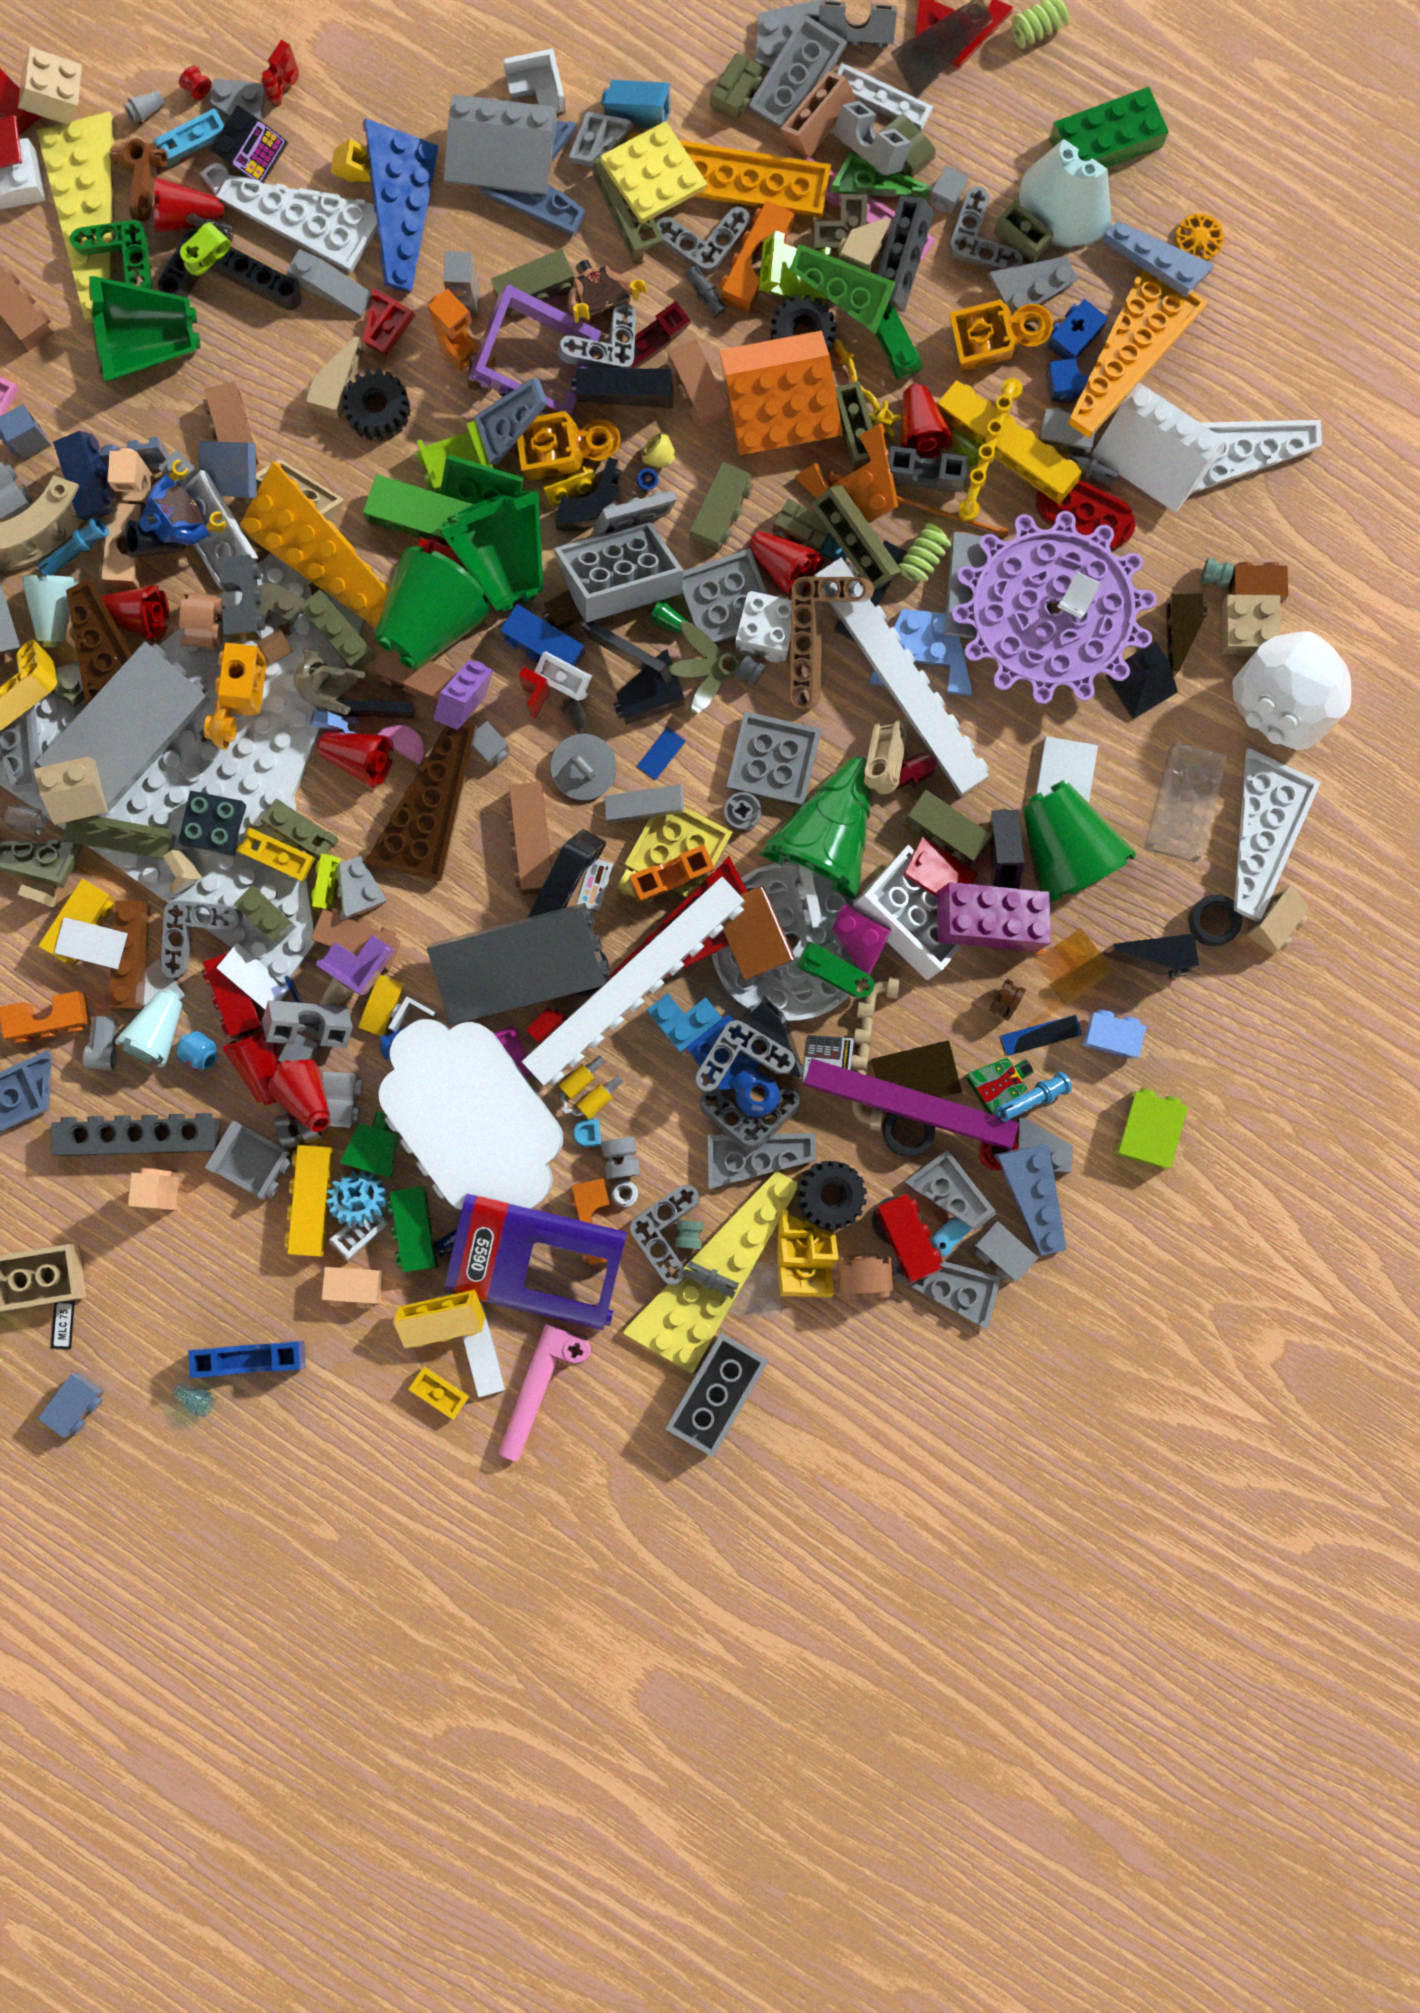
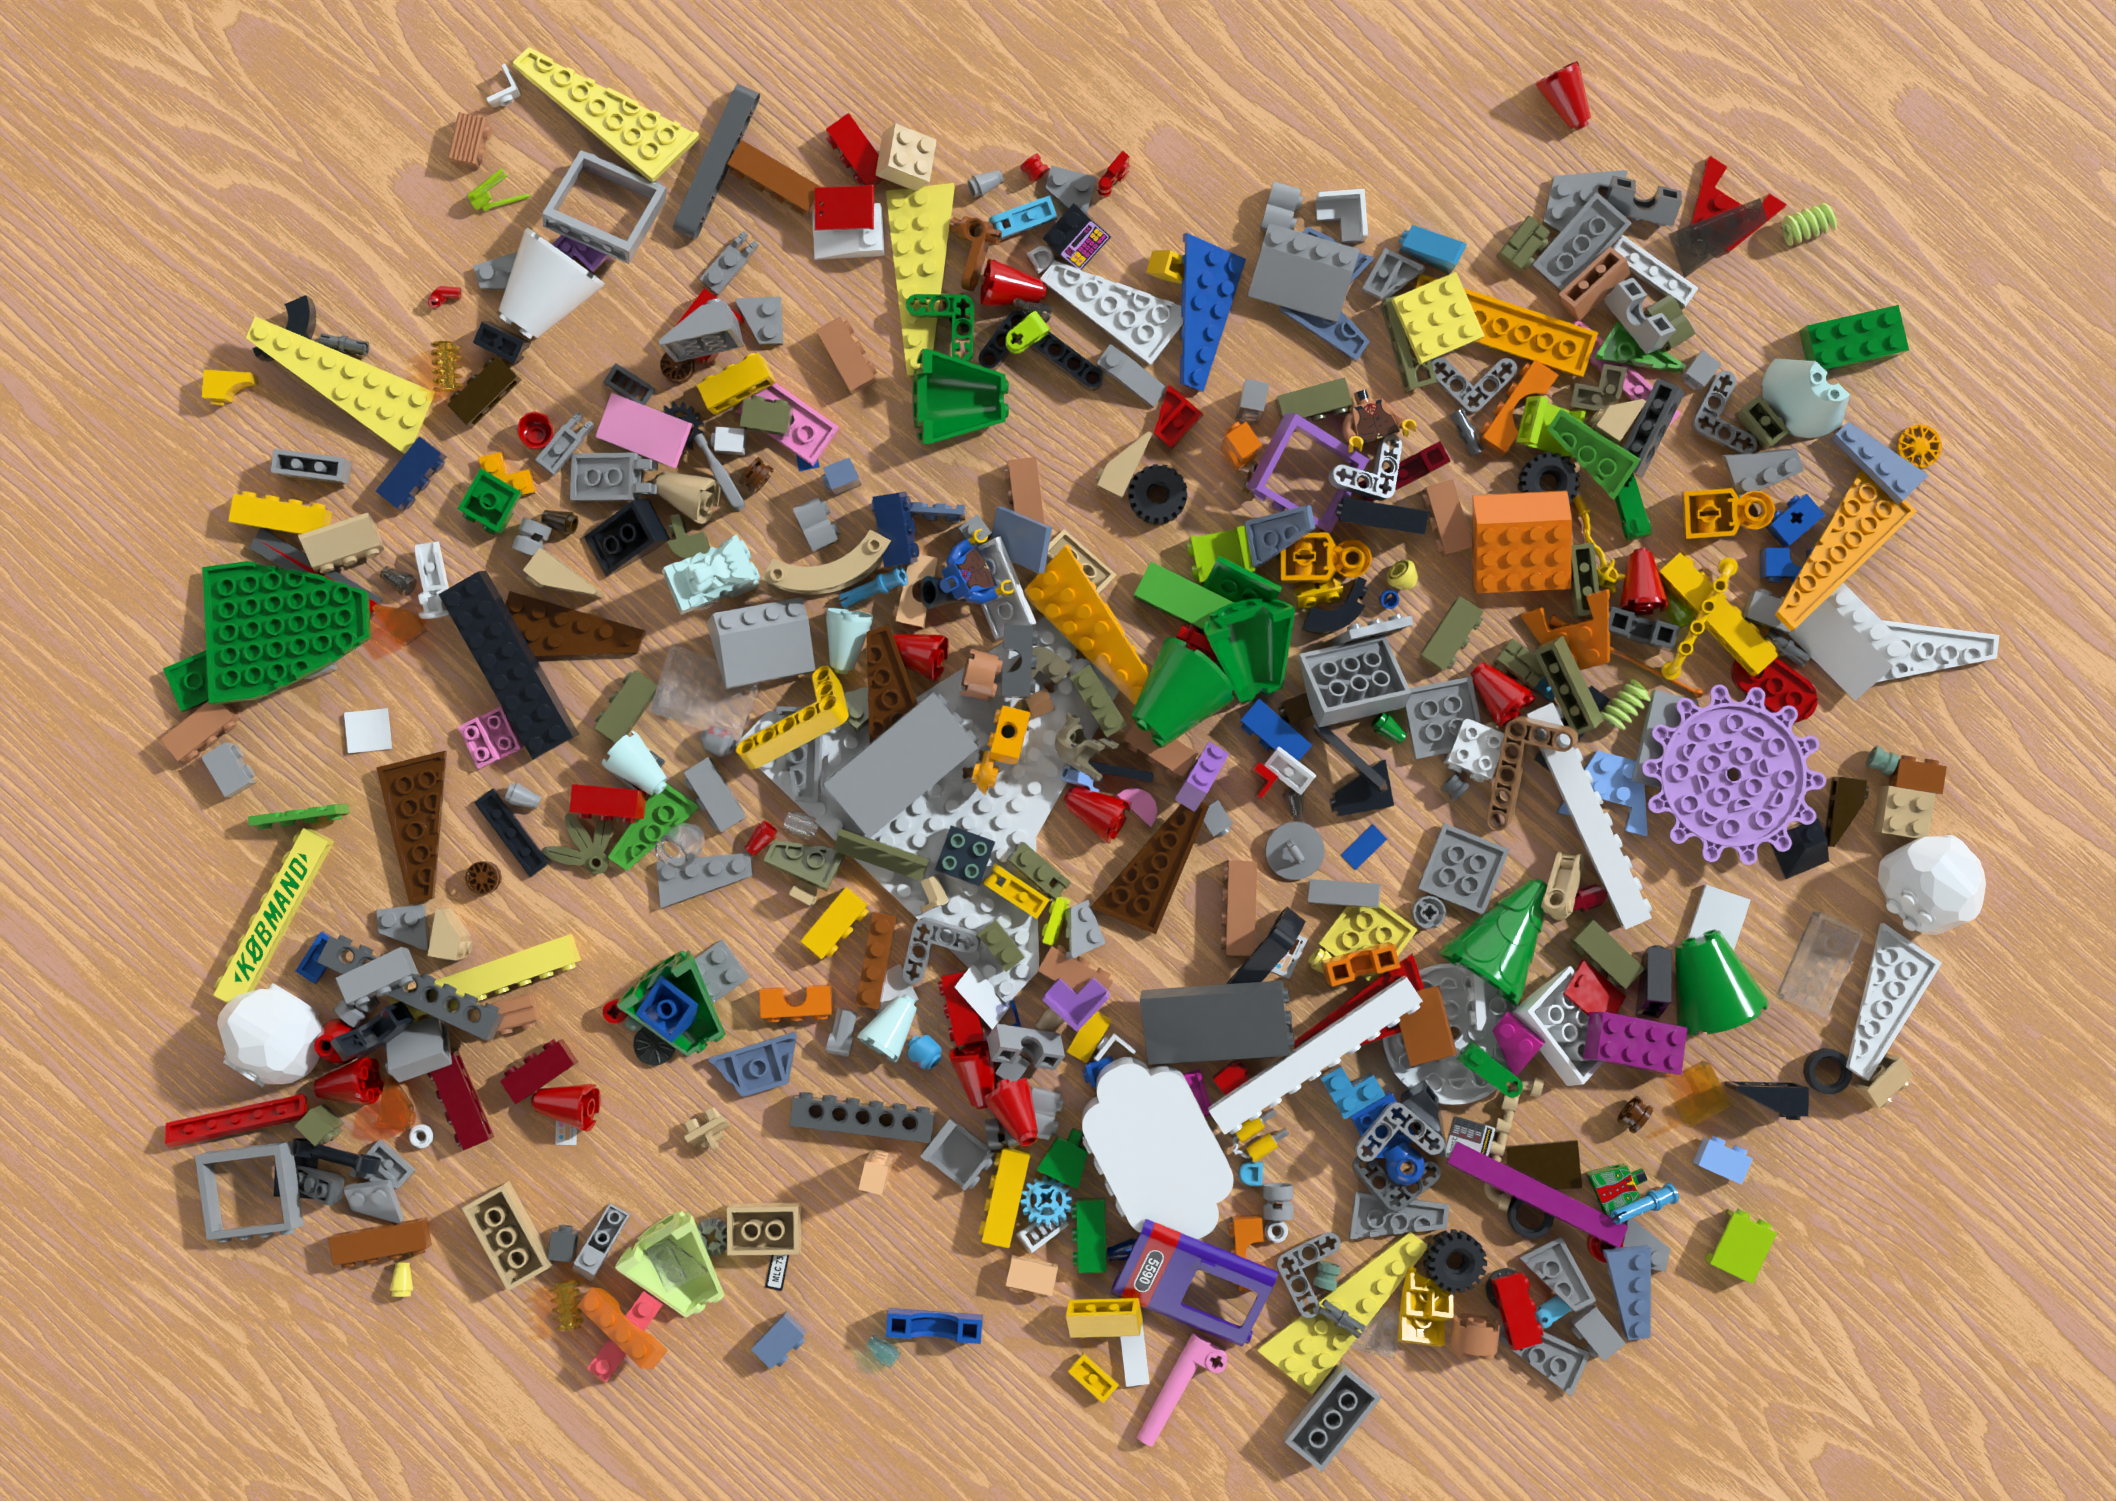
camera: 10 degrees right, 5 degrees up
(71, 790) = (852, 816): tan slope -> none
(91, 943) = (847, 947): white sticker -> none
(130, 475) = (935, 537): light nougat arch -> none
(469, 78) = (1281, 206): none -> light grey brick
(699, 667) = (1420, 778): olive plant -> none
(1041, 1035) = (1658, 1146): black sticker -> none
(1079, 595) = (1757, 772): white bracket -> none

